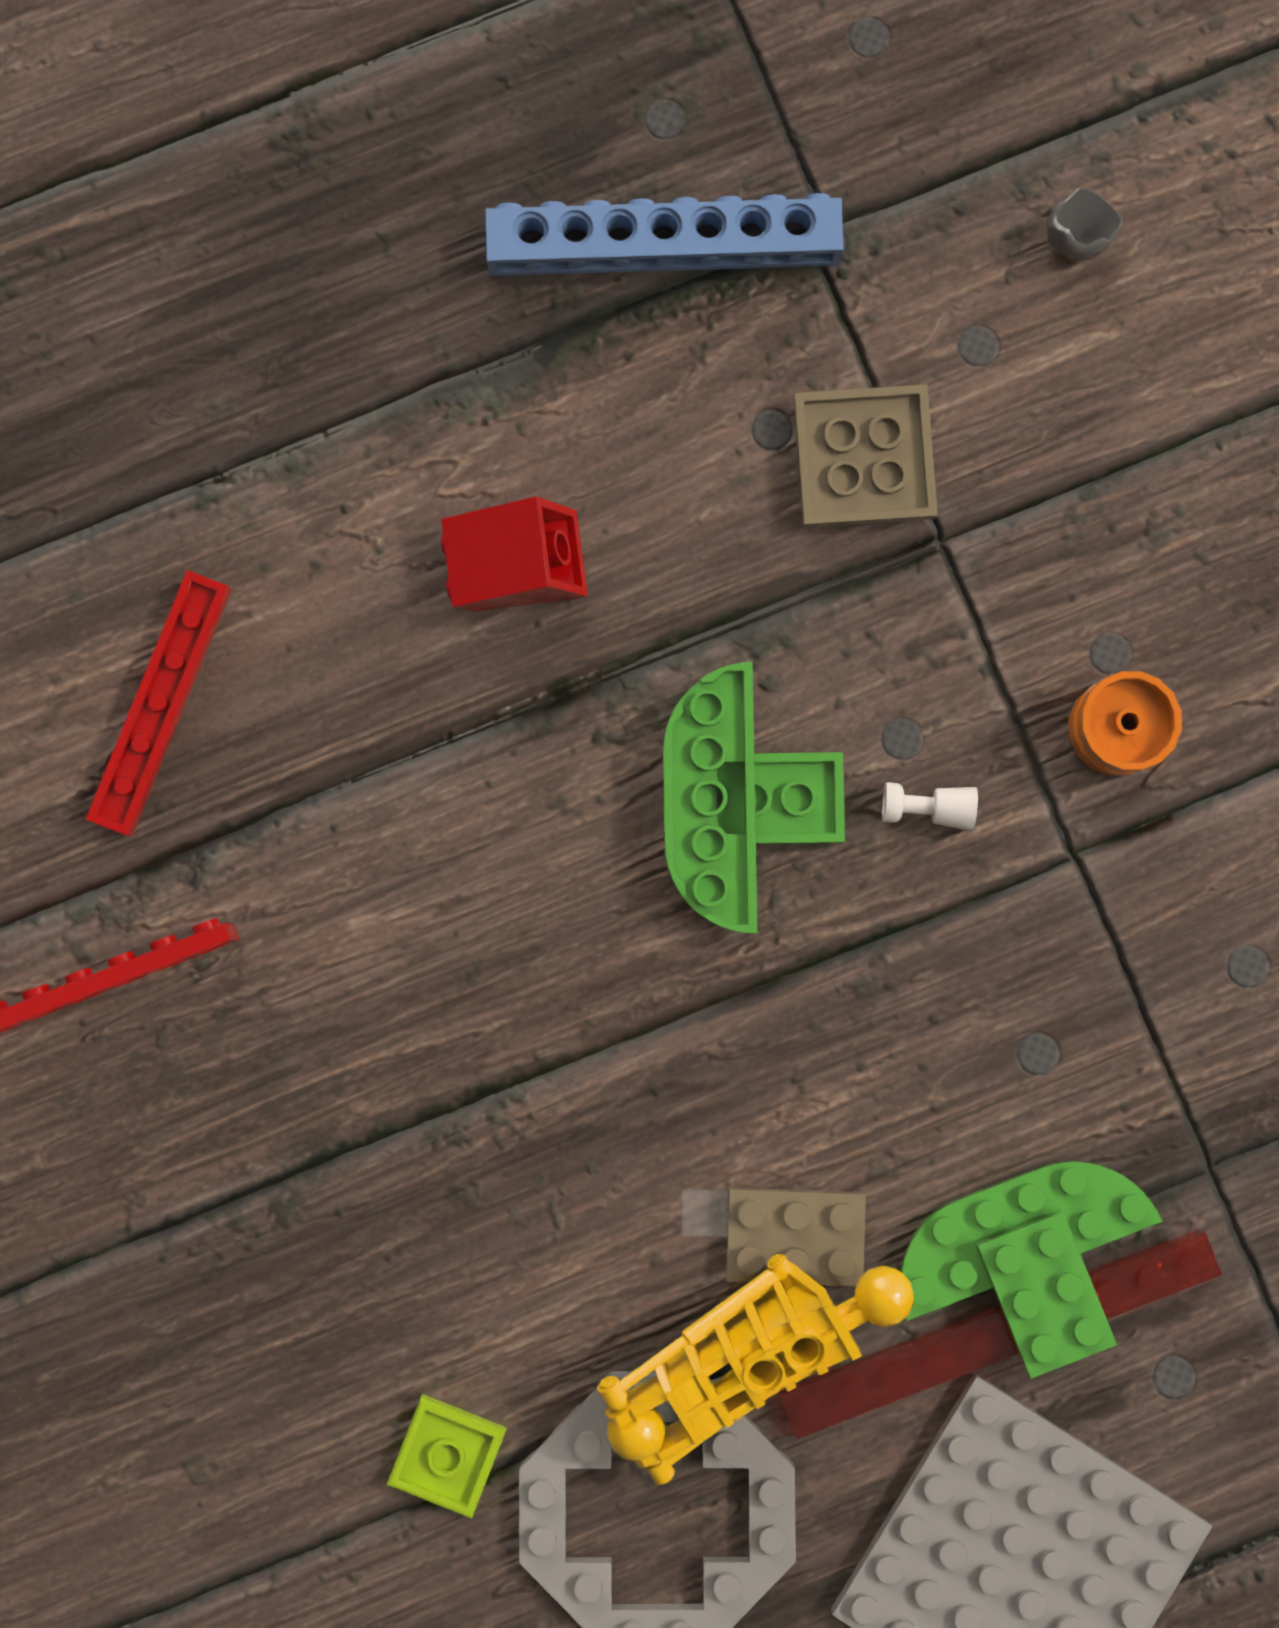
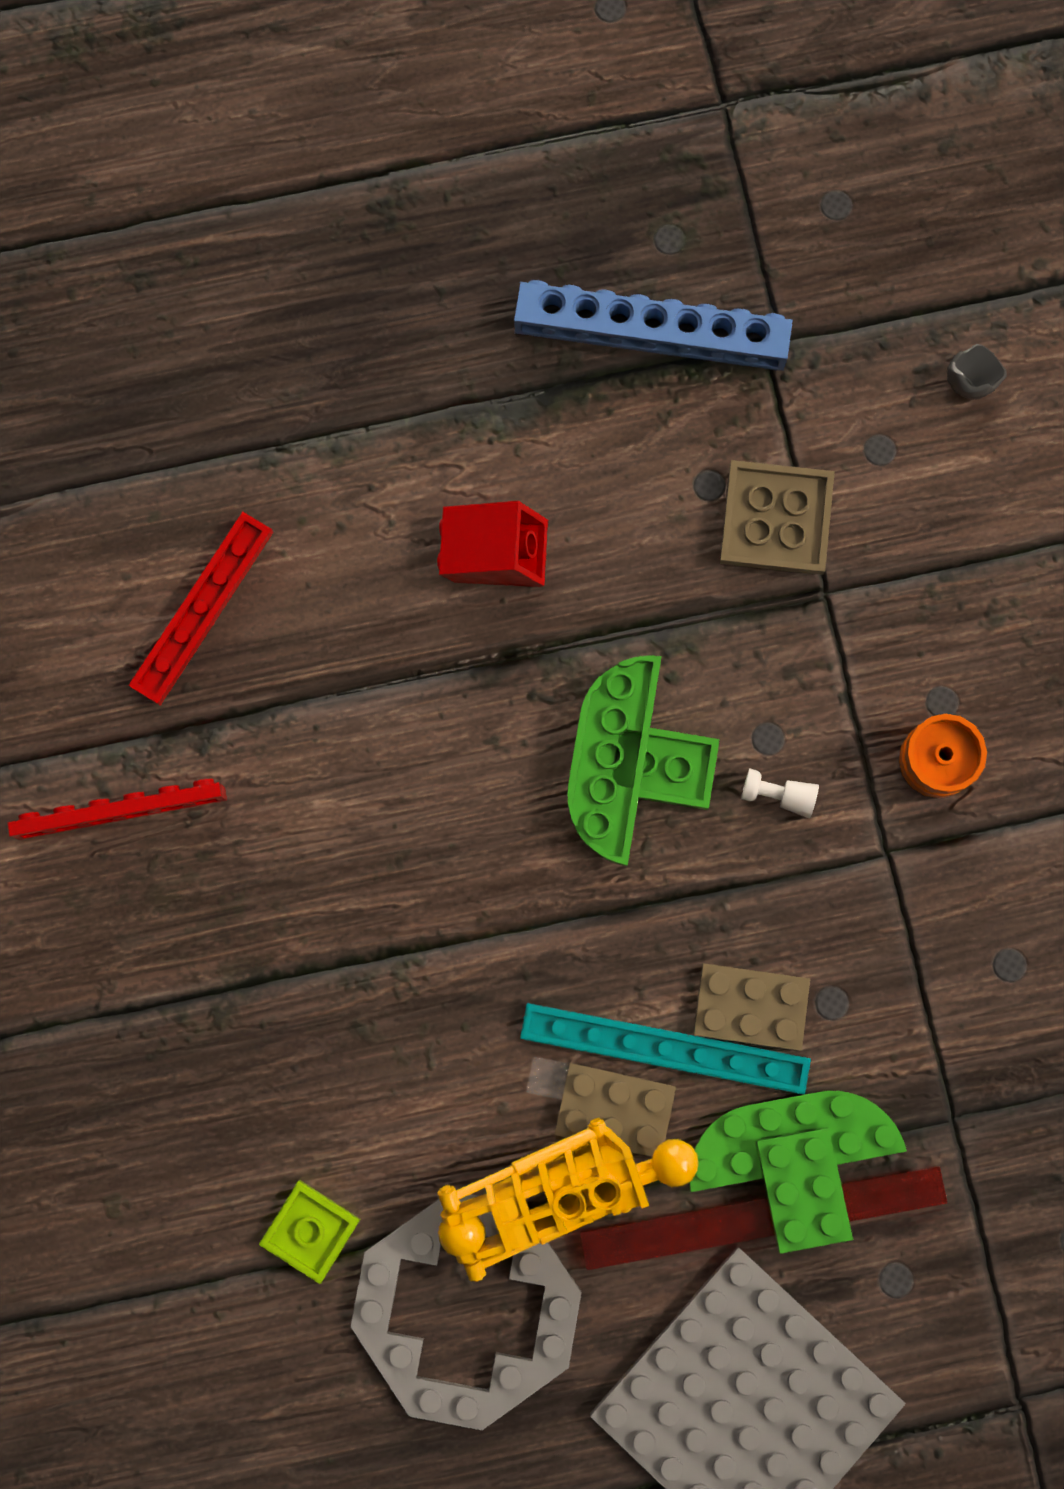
camera: 15 degrees right, 5 degrees down
(843, 1149) = (665, 1048): none -> teal tile
(941, 1078) = (751, 1007): none -> dark tan plate

